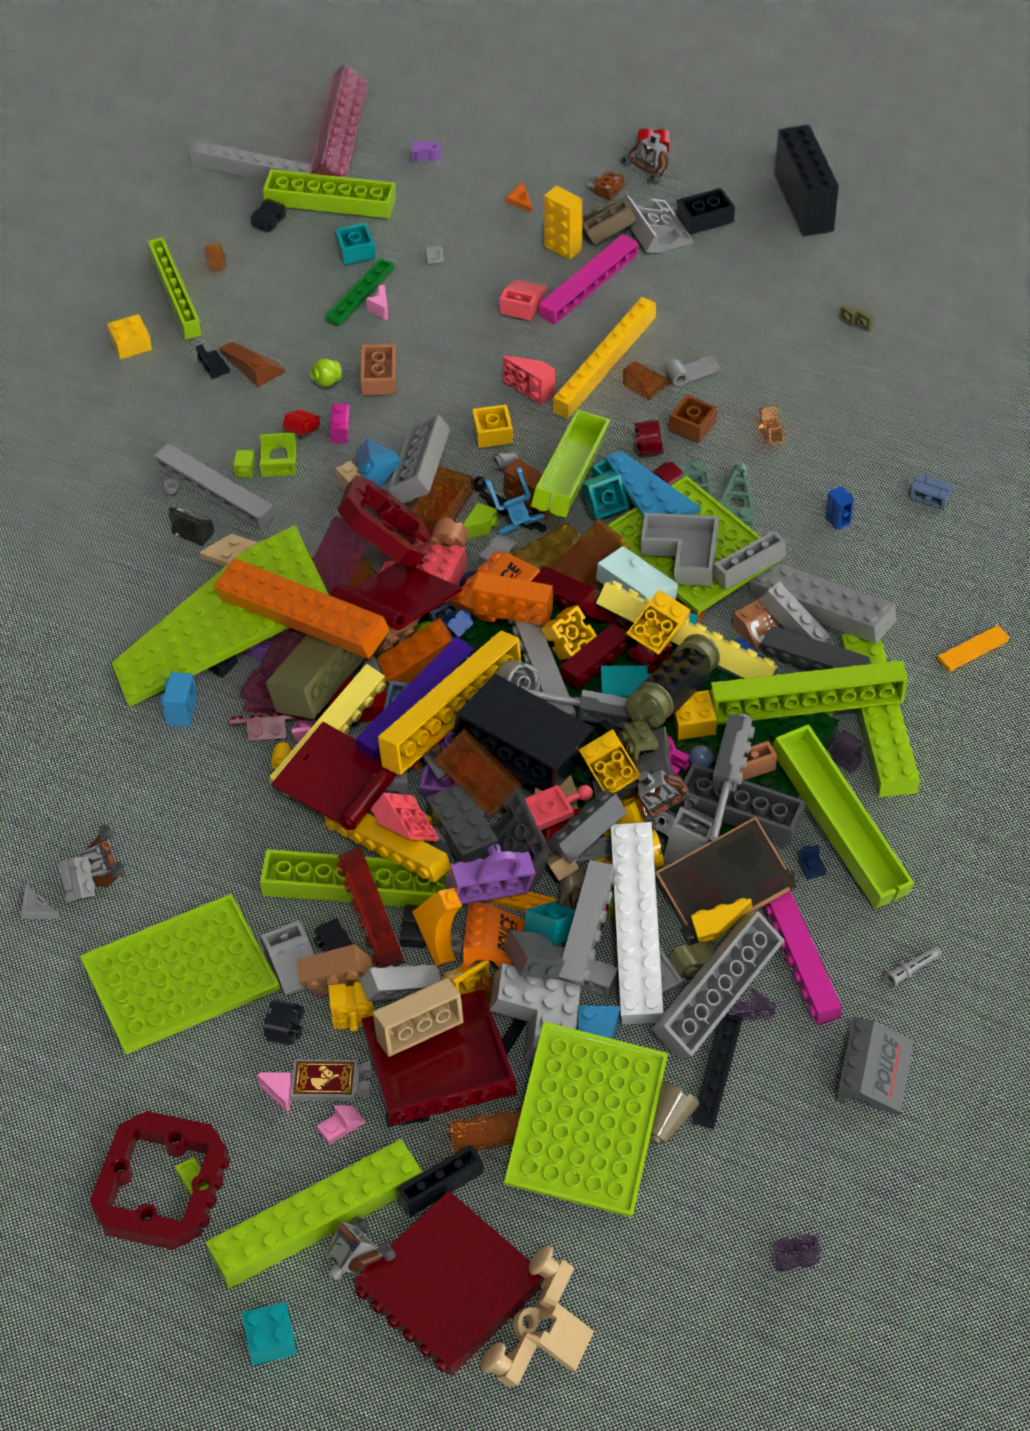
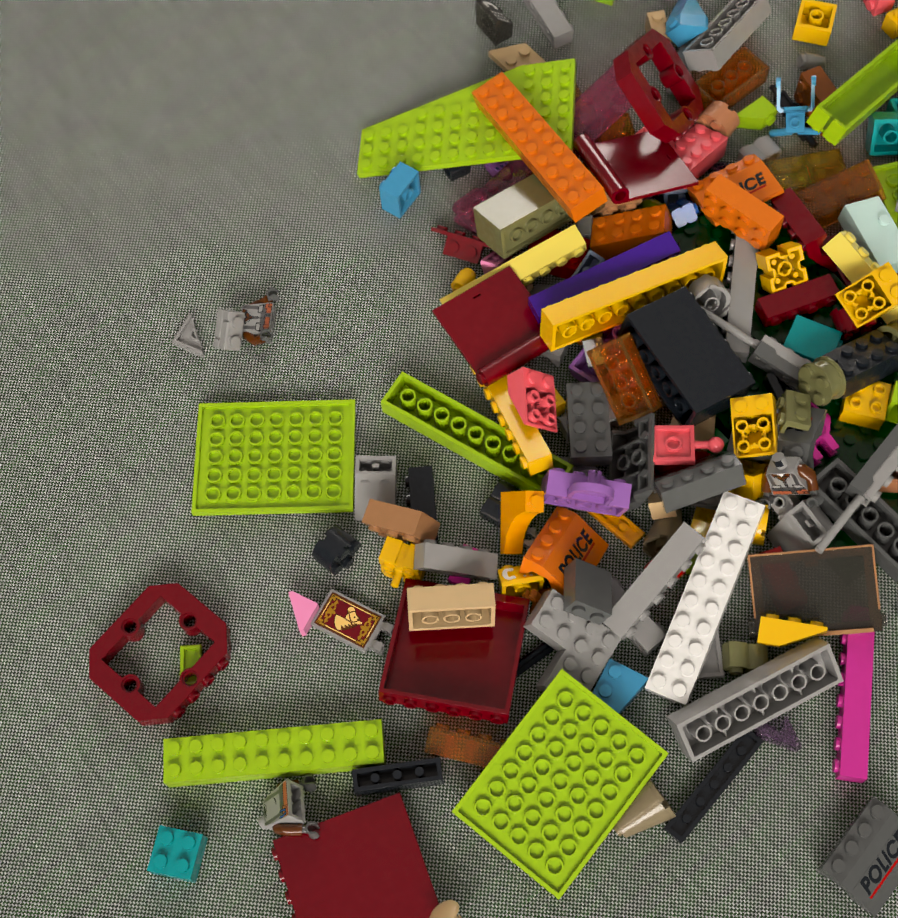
camera: 30 degrees right, 15 degrees up
(343, 1122) = (341, 671): bright pink slope -> none
(371, 909) = (464, 473): clear red brick -> none
(479, 484) = (773, 73): black hinge -> none
(551, 920) = (623, 558): teal brick -> none
(701, 755) = (850, 451): sand blue piece -> none

